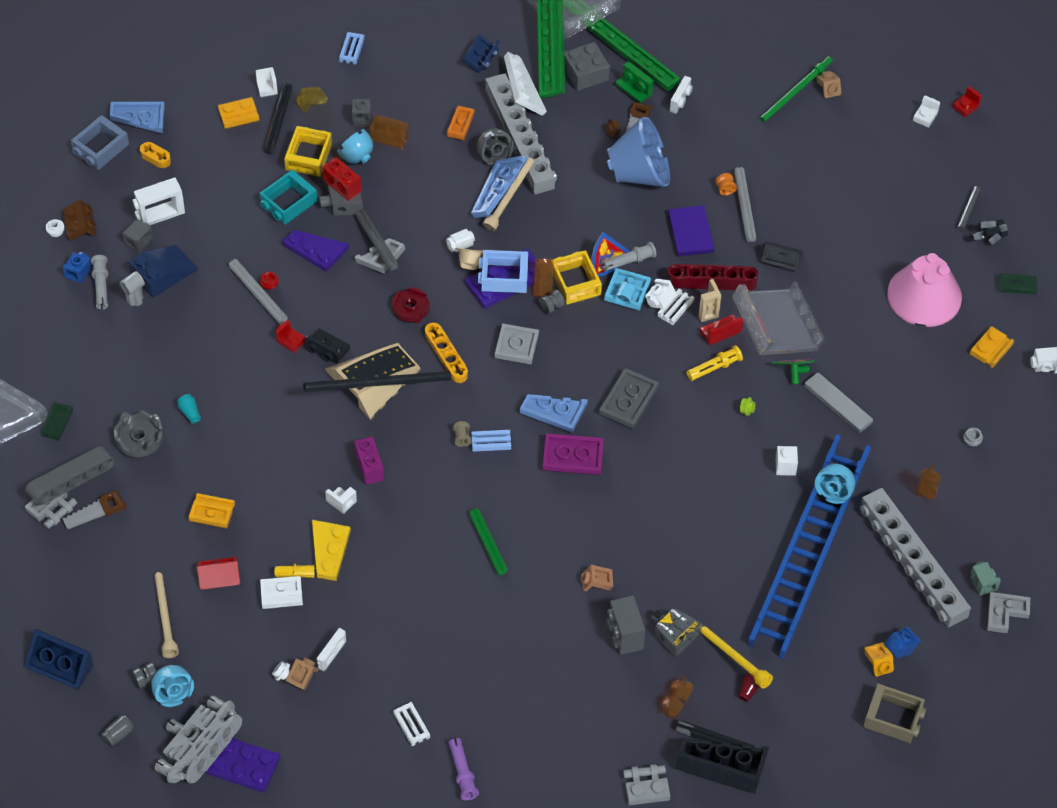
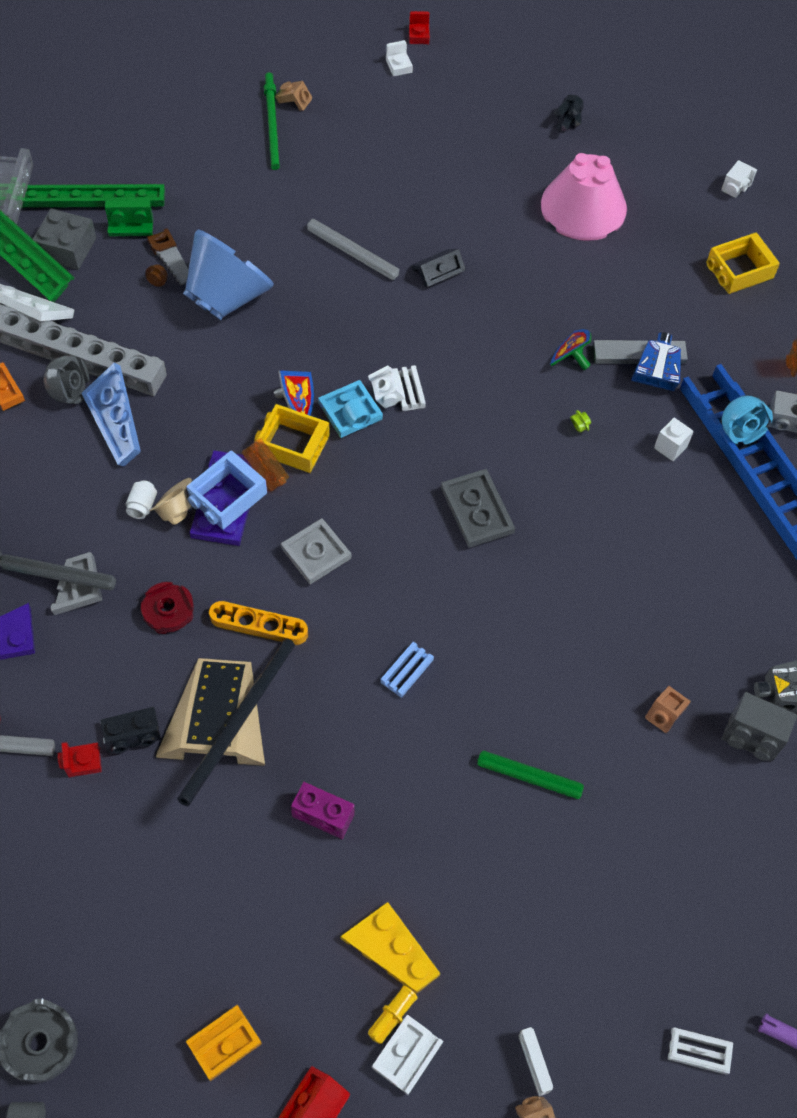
camera: 50 degrees left, 5 degrees up
(189, 408) = (60, 949): teal cone -> none
(341, 499) = (341, 880): white panel -> none
(462, 433) = (375, 690): dark tan bush -> none
(491, 222) = (149, 455): tan piece -> none
(551, 302) = (299, 476): dark grey wheel -> none
(557, 412) = (433, 581): medium blue wing -> none
(573, 454) = (496, 608): magenta plate -> none
(636, 255) = (320, 371): light grey pin -> none
(679, 97) = (180, 195): white plate -> none
(691, 231) = (336, 310): dark purple tile -> none
(698, 276) = (409, 333): dark red beam -> none
(710, 303) = (440, 352): tan panel -> none
(722, 329) = (471, 373): red panel -> none
(723, 360) = (508, 400): yellow pin -> none
(726, 184) = (317, 244): orange wheel -> none
(778, 320) = (513, 320): clear panel -> none
(834, 414) = (659, 364): none -> blue torso
(968, 209) = (525, 110): flat silver bar -> none
(973, 437) = (769, 287): light grey plate -> none
(977, 395) = (758, 253): none -> yellow window
(991, 347) = (684, 204): light orange plate -> none
(1017, 283) = (636, 139): clear green tile -> none

